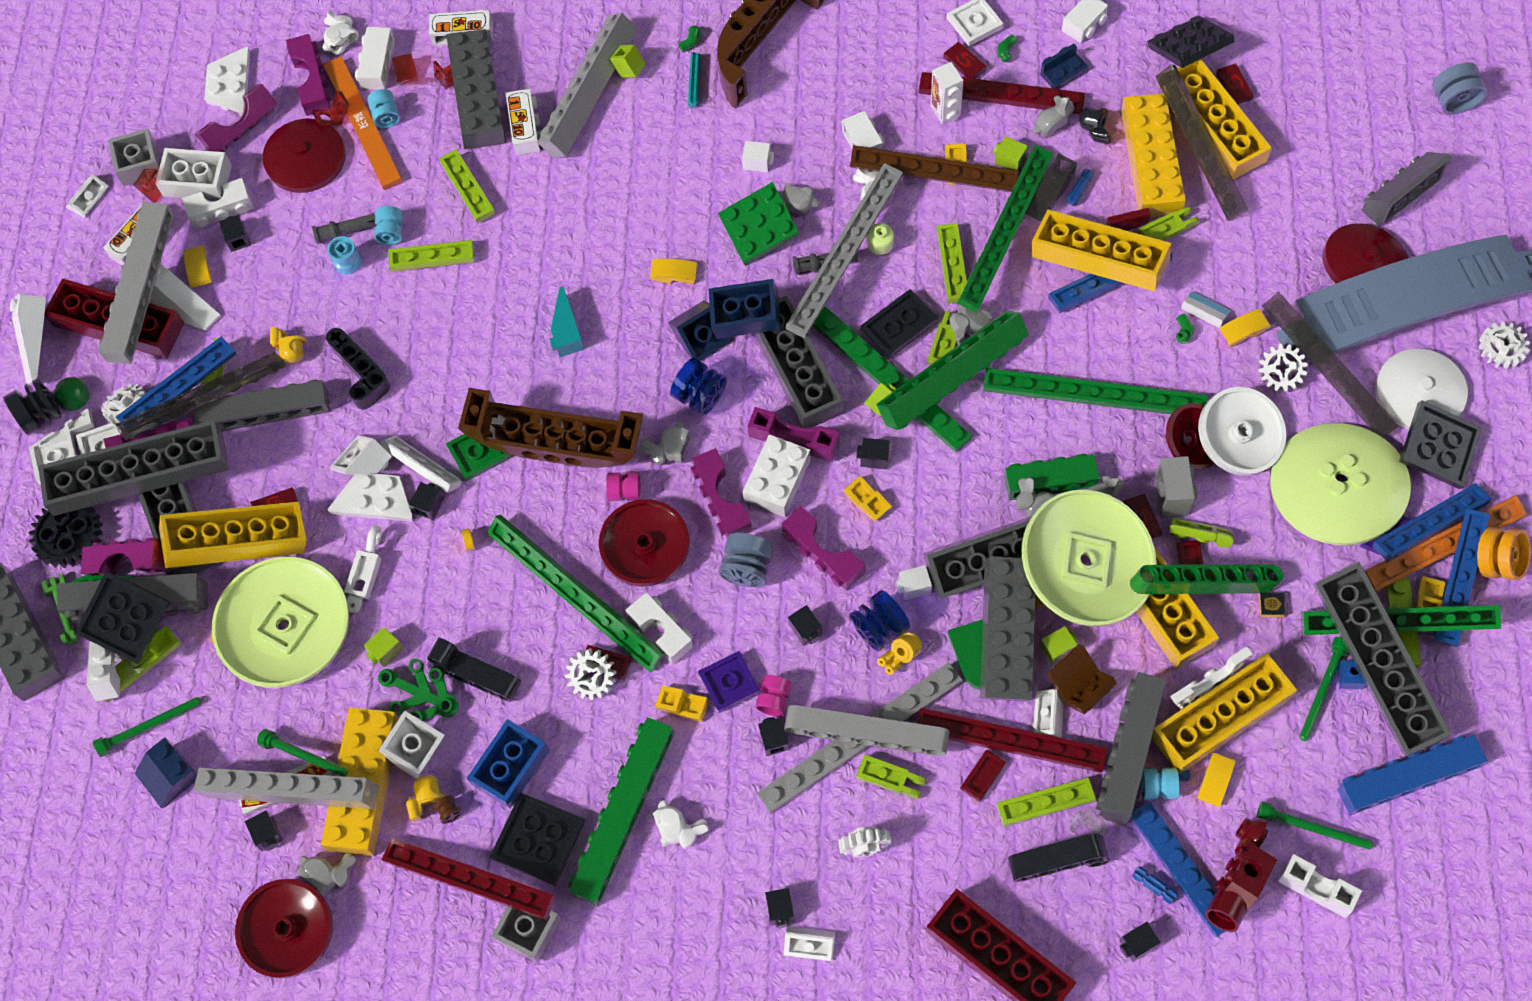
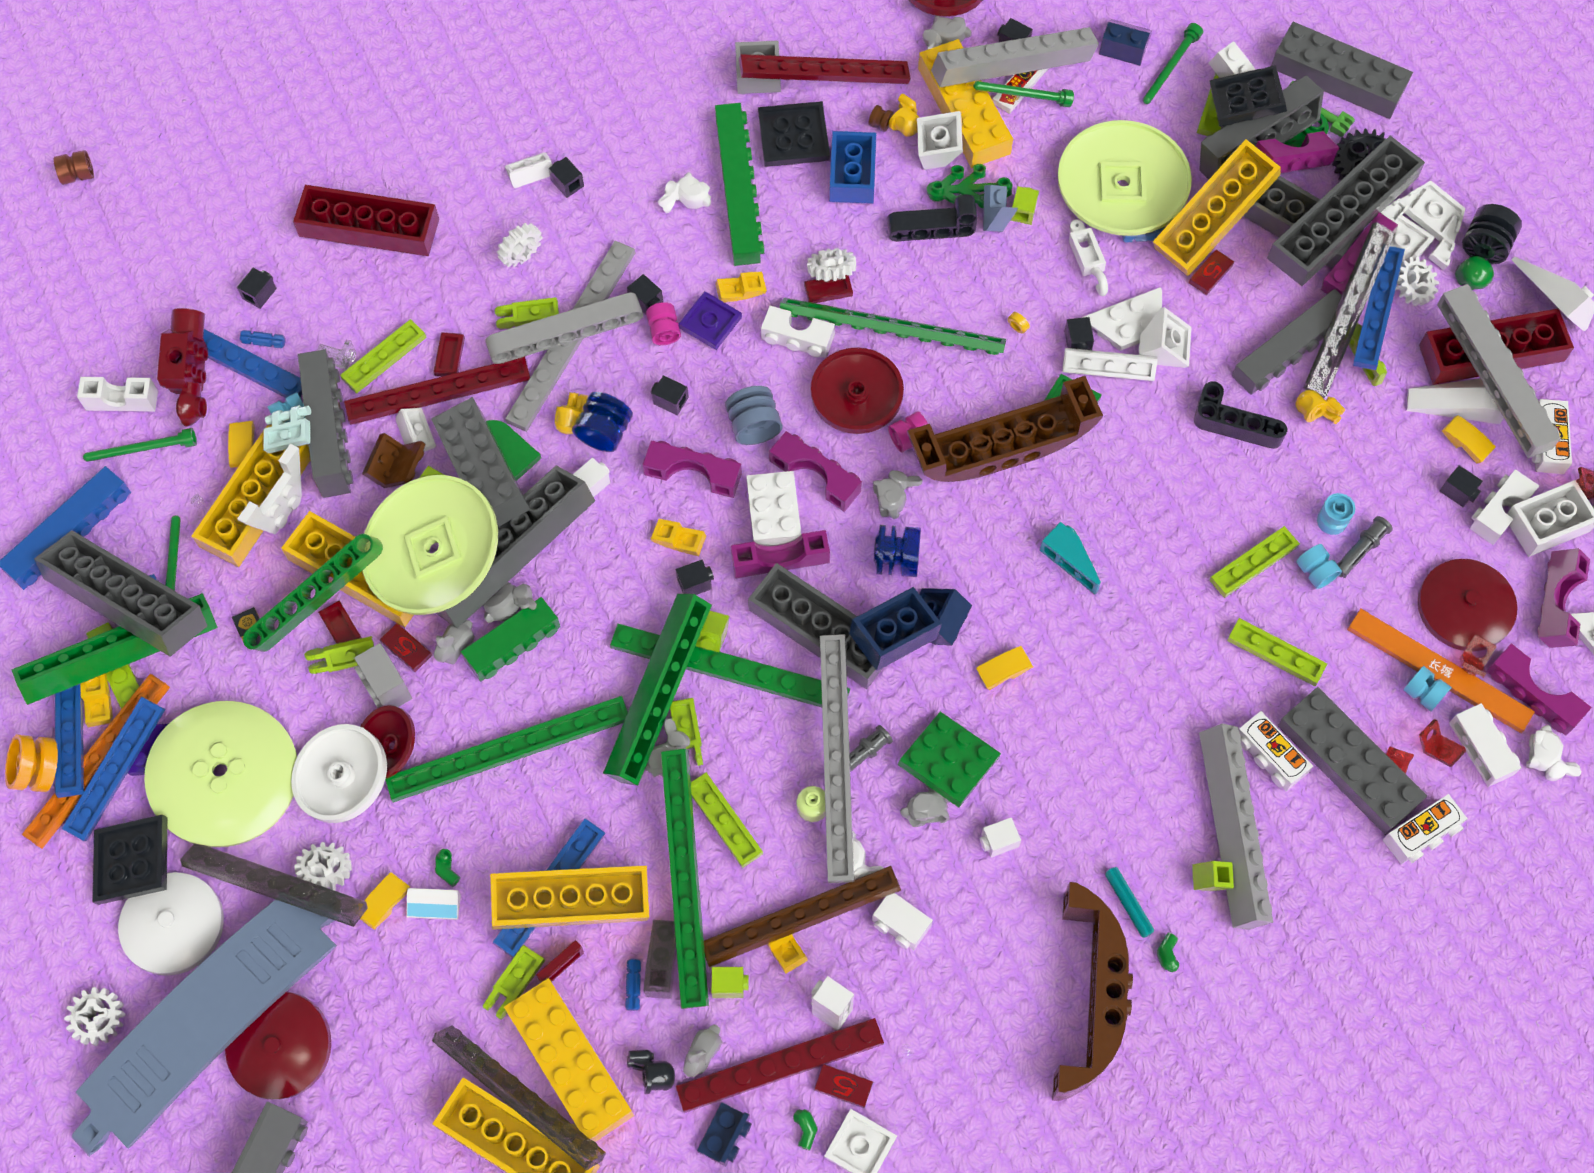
camera: 145 degrees right, 0 degrees up
(412, 648) = (995, 210): none -> sand blue slope
(899, 323) = (743, 725): black plate -> none
(1060, 856) = (348, 312): black beam -> none
(1176, 732) = (283, 434): none -> light aqua plate

